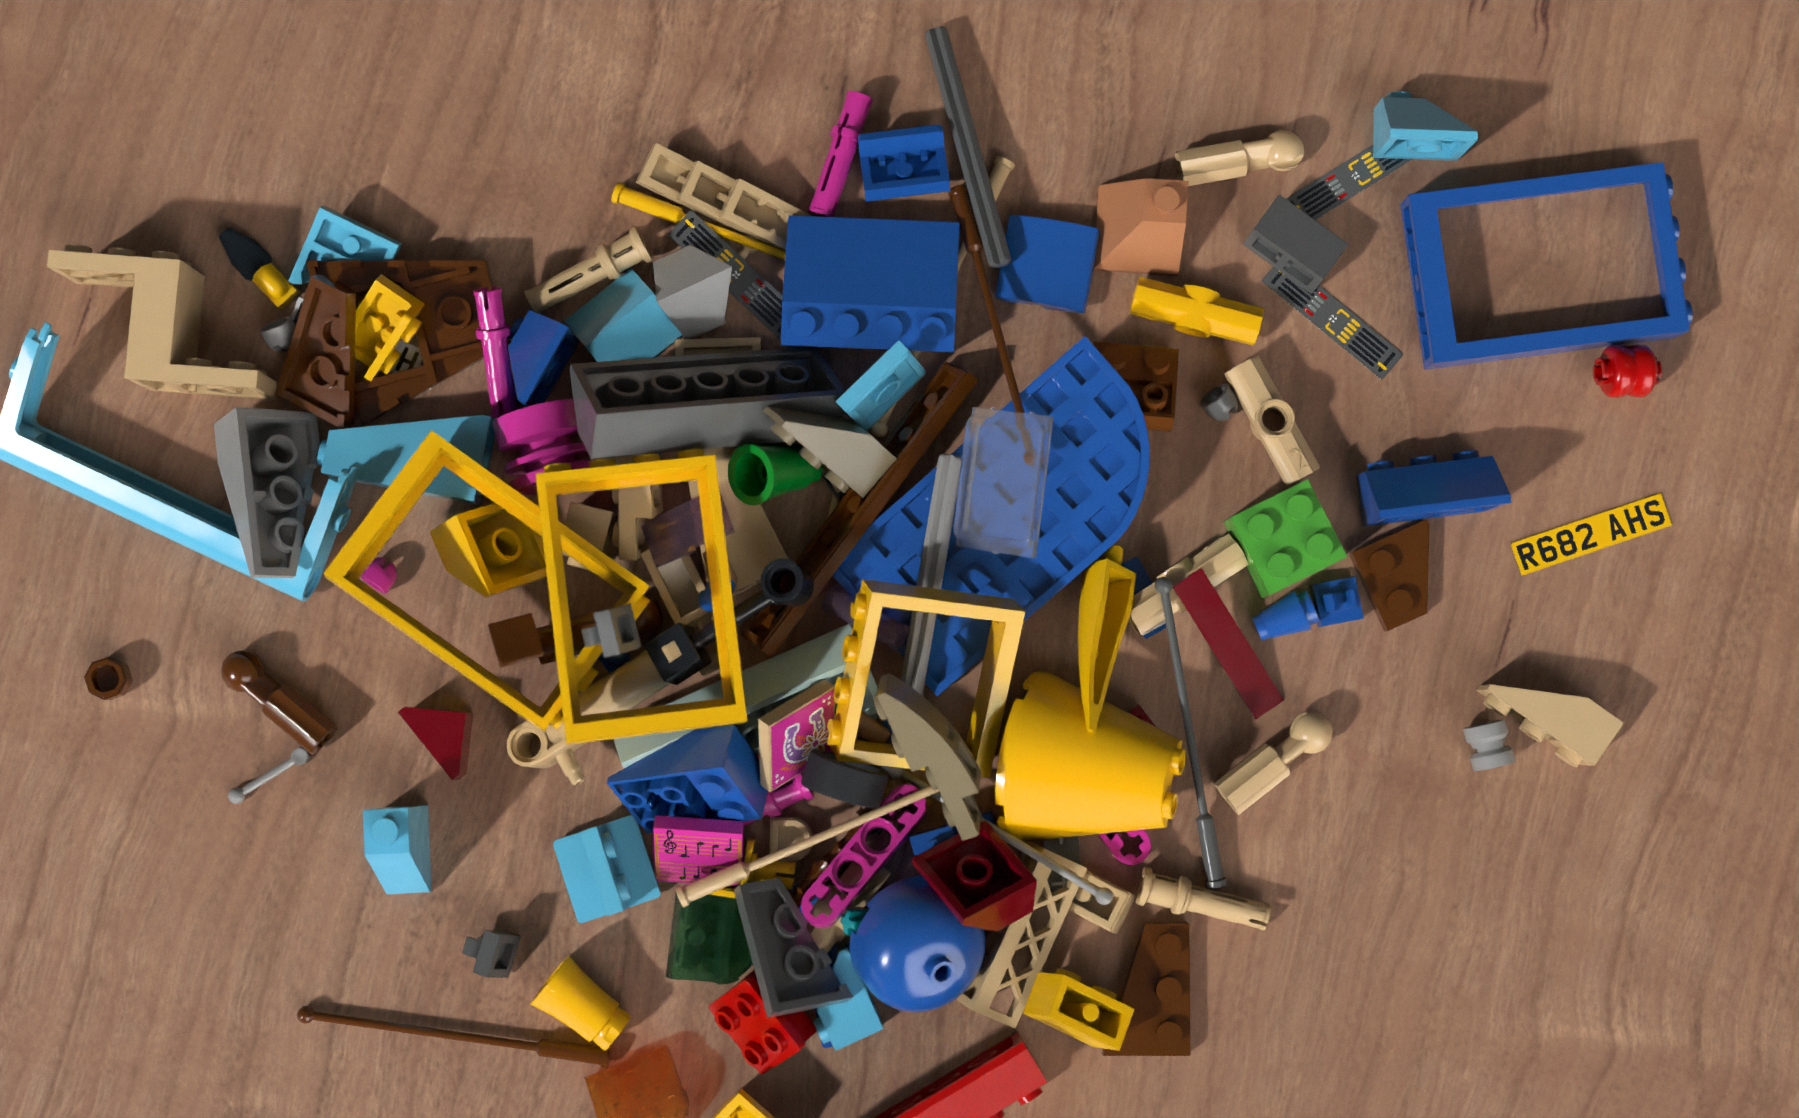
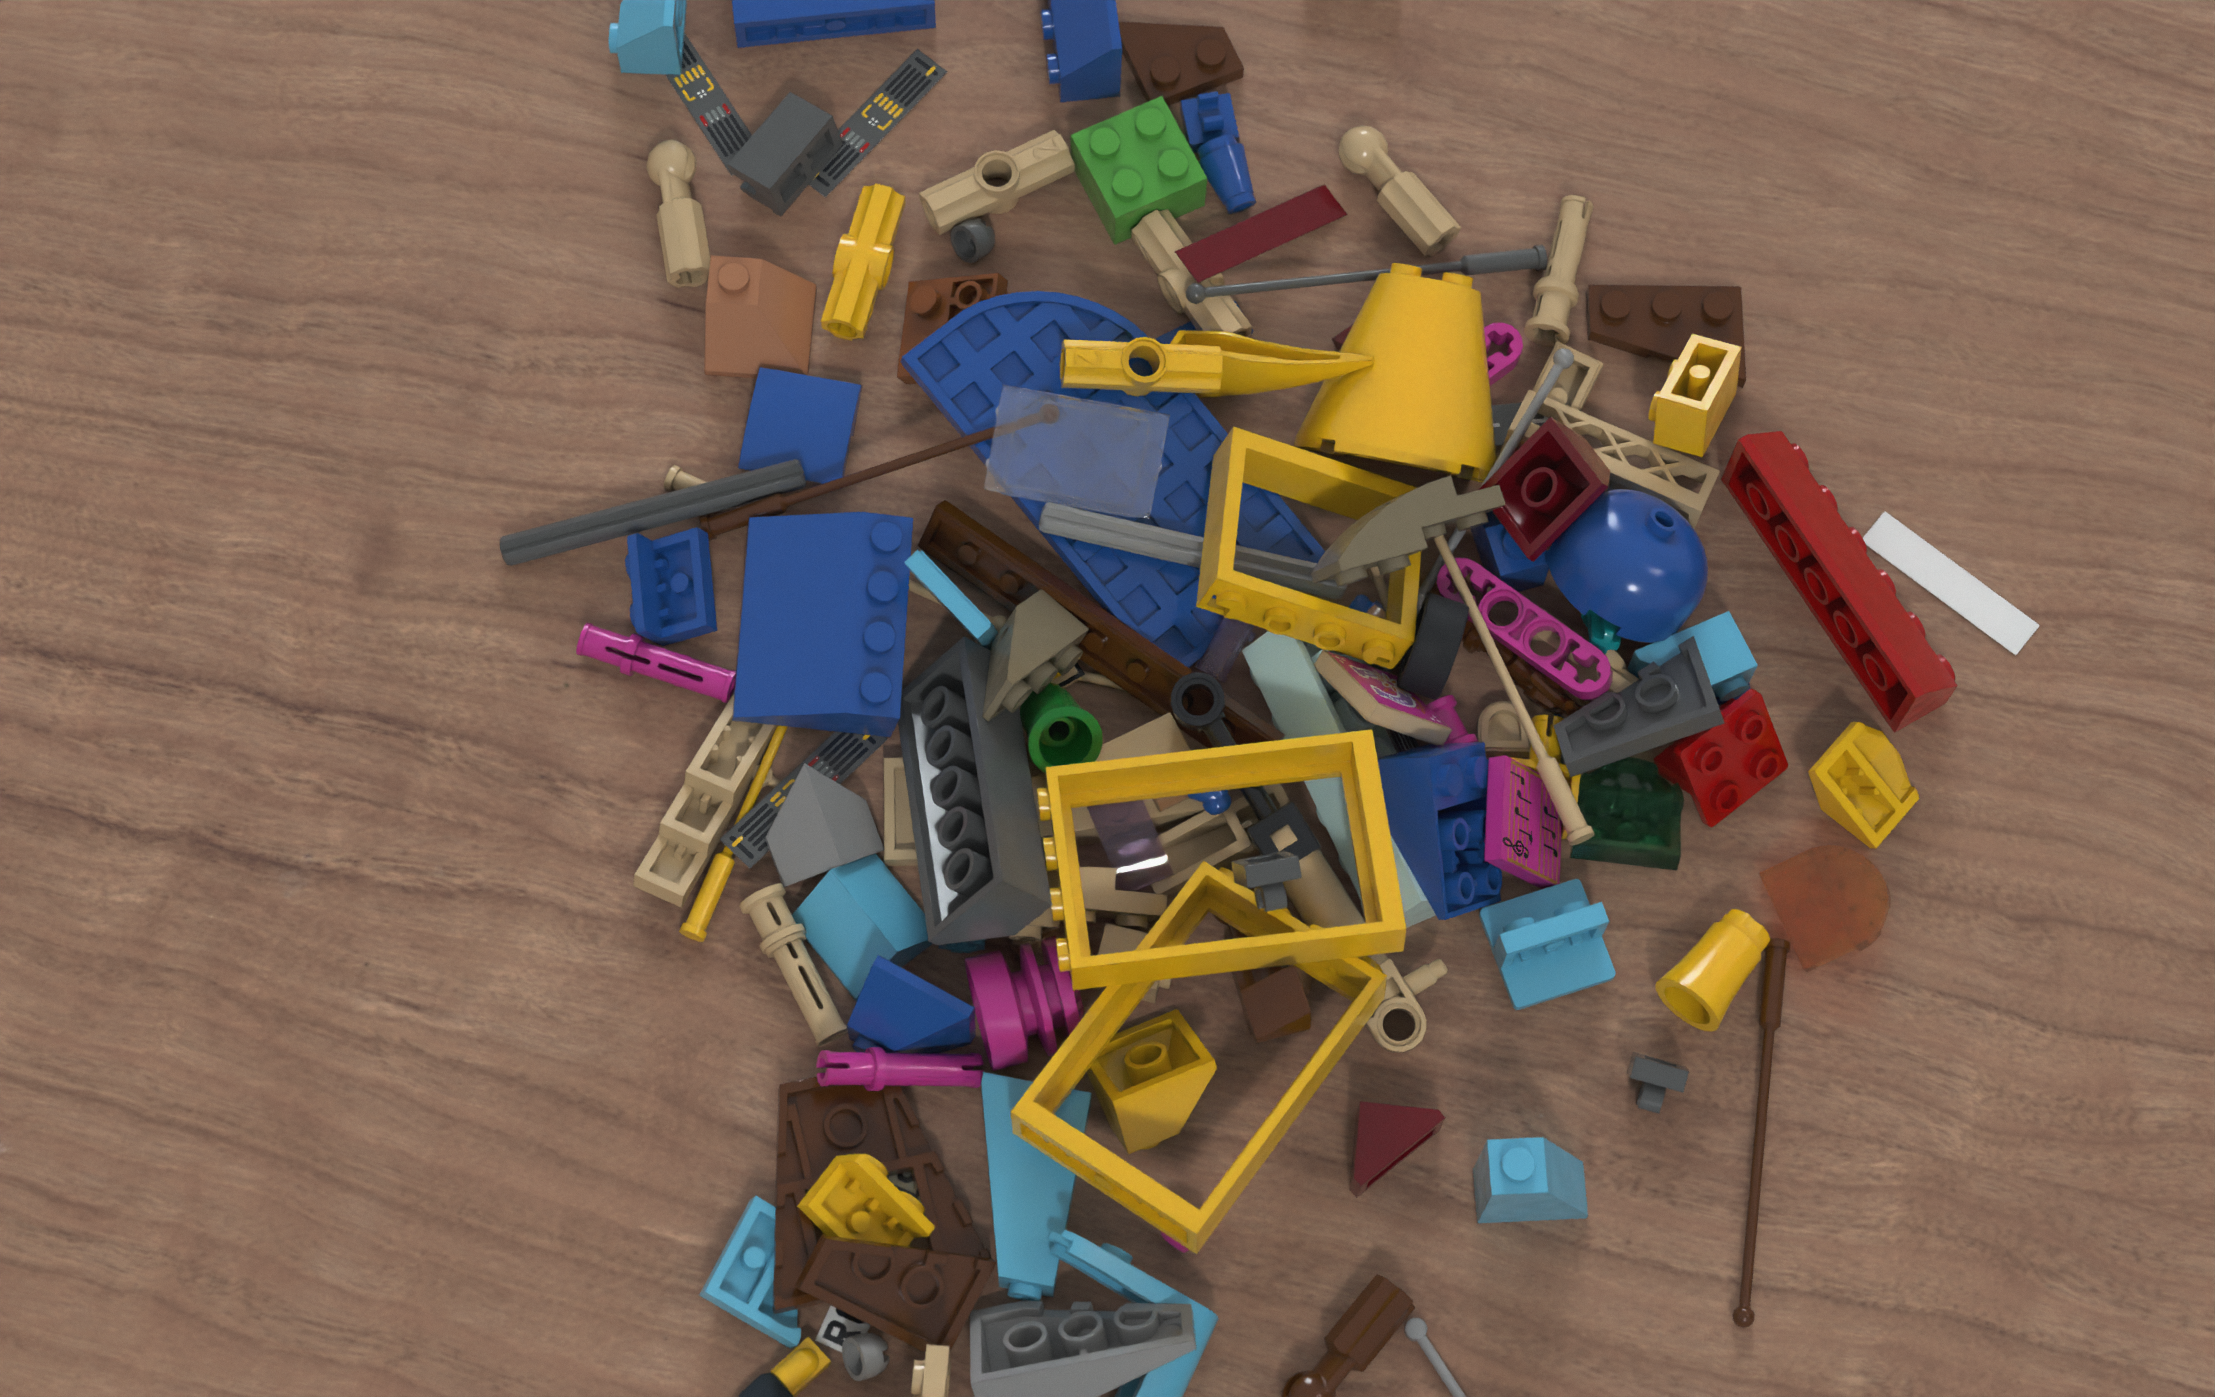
camera: 90 degrees left, 15 degrees down
(1080, 564) = (1174, 366): none -> yellow piece

